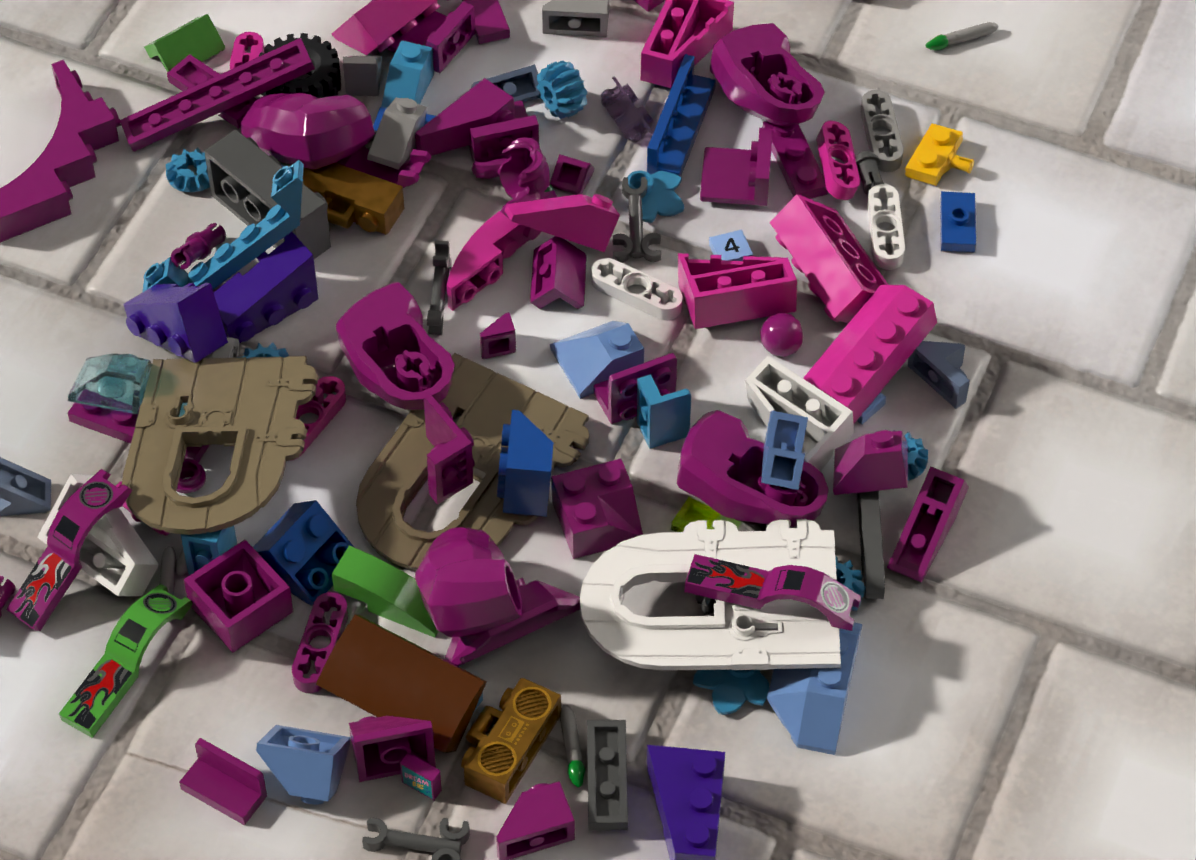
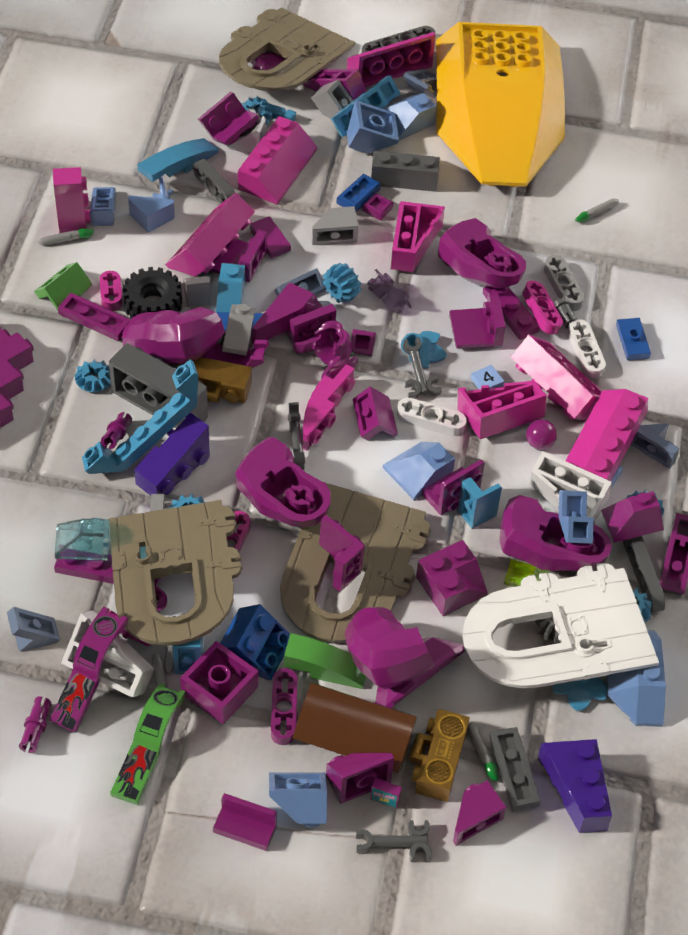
camera: 15 degrees left, 0 degrees up
(178, 319) = (120, 486): dark purple wedge -> none
(217, 94) = (100, 319): magenta plate -> none
(498, 338) = (348, 466): magenta slope -> none
(524, 467) = (400, 556): blue slope -> none
(570, 217) = (377, 373): dark pink slope -> none
(680, 120) = (428, 294): blue fence -> none
(757, 587) = (588, 617): magenta piece -> none
(937, 155) = (606, 295): yellow plate -> none

